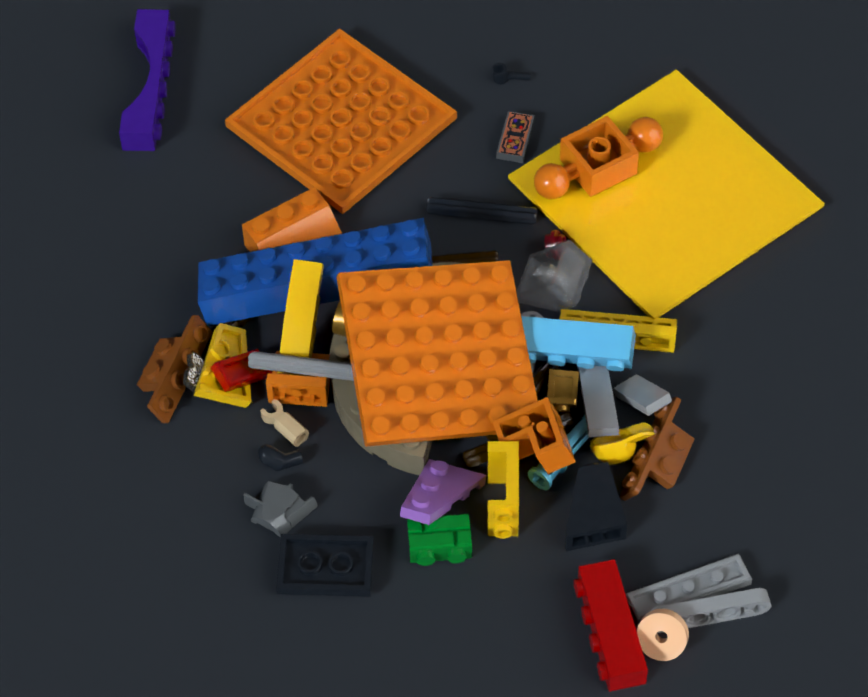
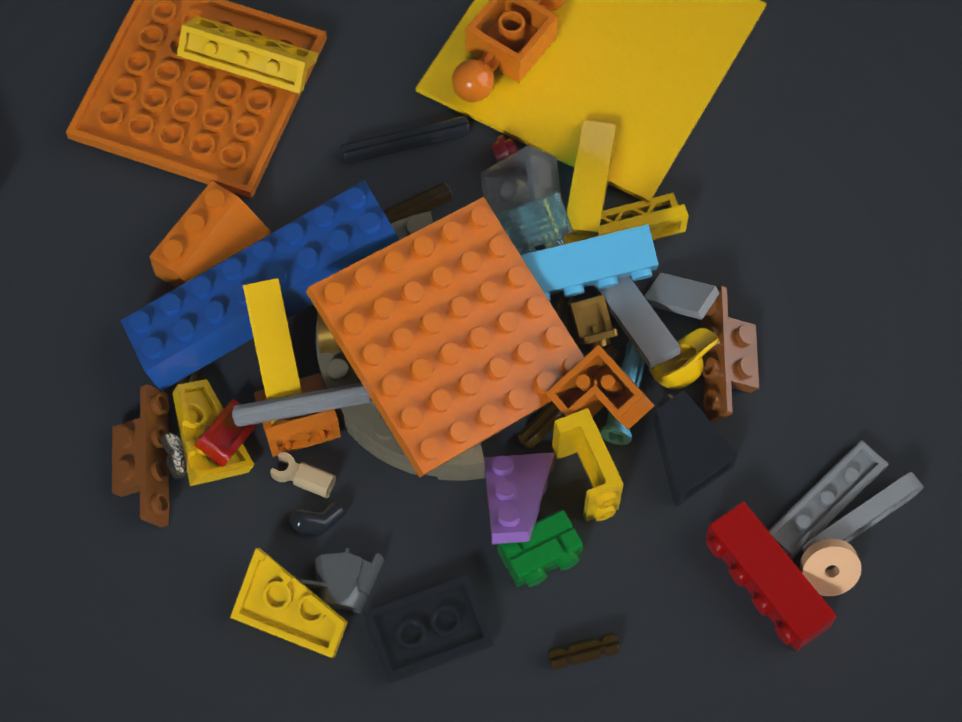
camera: 25 degrees left, 10 degrees up
(225, 510) = (286, 608): none -> yellow wing
(385, 106) = (245, 53): none -> yellow fence
(438, 626) = (583, 651): none -> dark brown axle
(515, 137) = (401, 39): tile -> none
(545, 297) = (536, 223): none -> clear light blue brick
(610, 282) = (590, 177): none -> yellow slope

